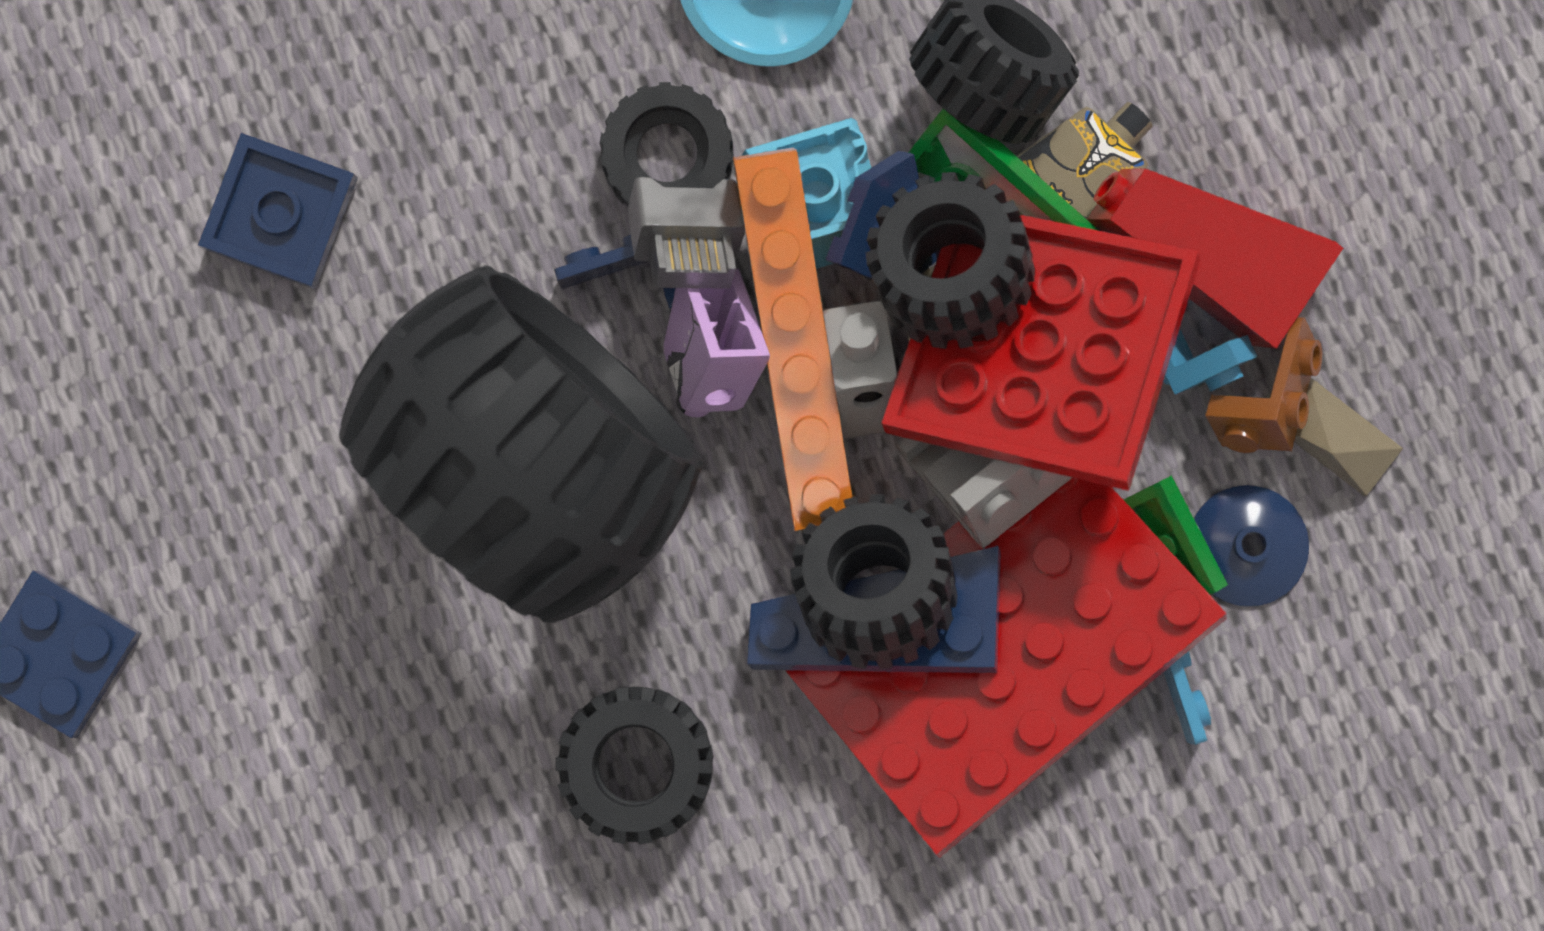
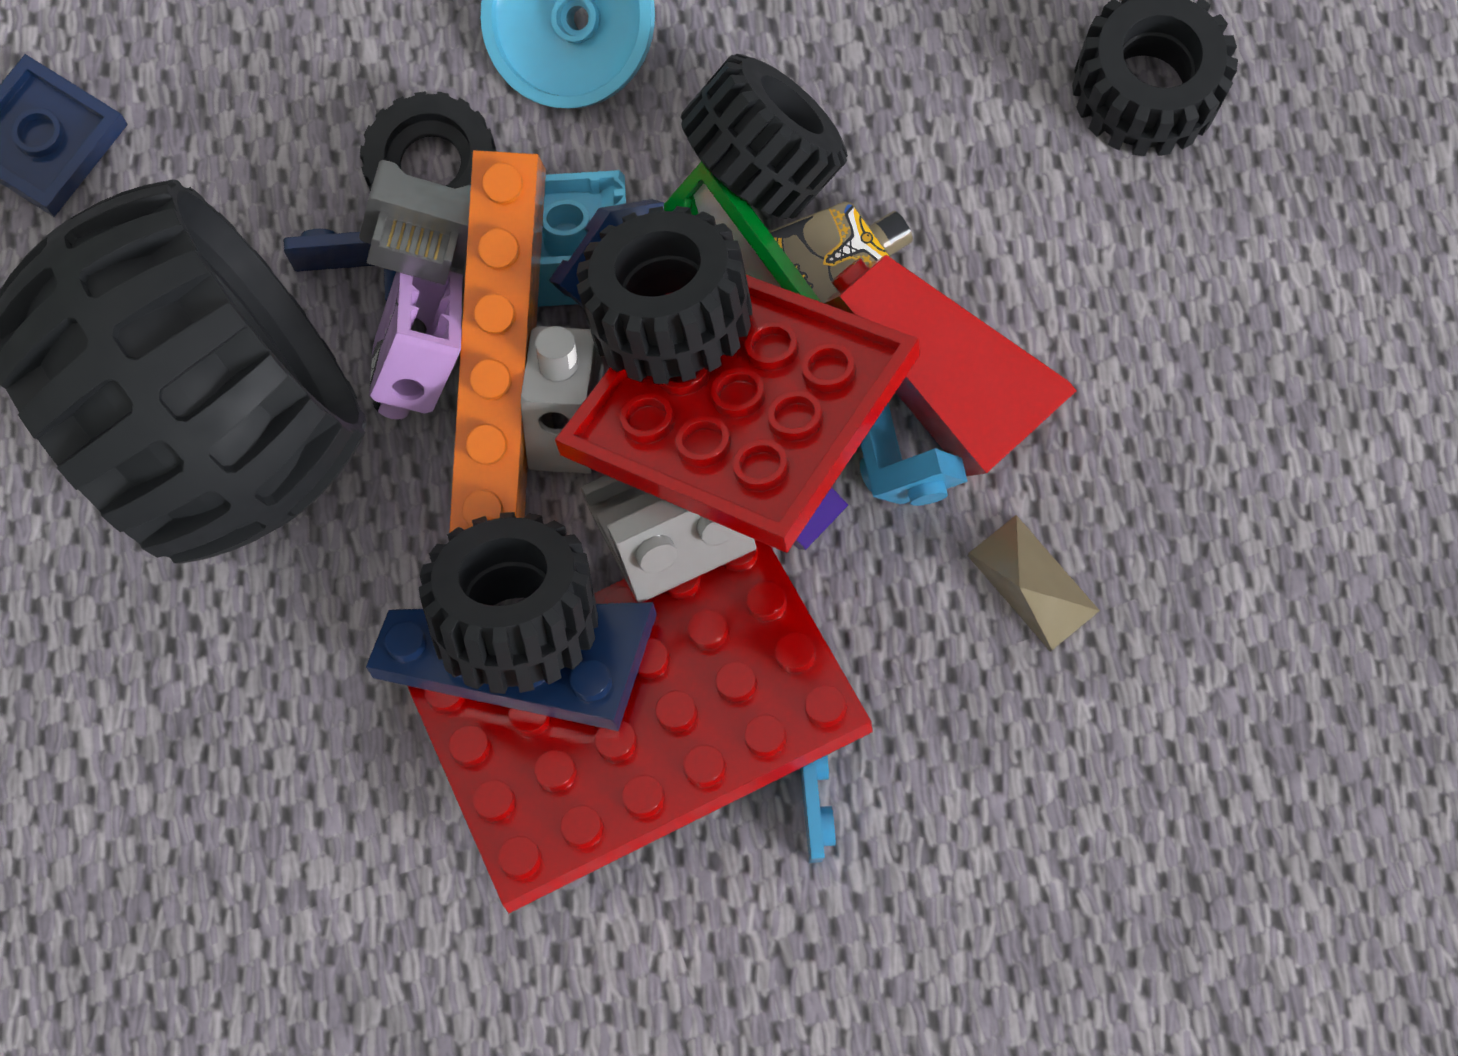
camera: 10 degrees right, 10 degrees down
(581, 775) = (186, 708): black tyre -> none
(1170, 519) = (841, 623): green plate -> none
(1271, 422) = (970, 543): dark orange bracket -> none
(1284, 539) = (912, 705): dark blue dish -> none

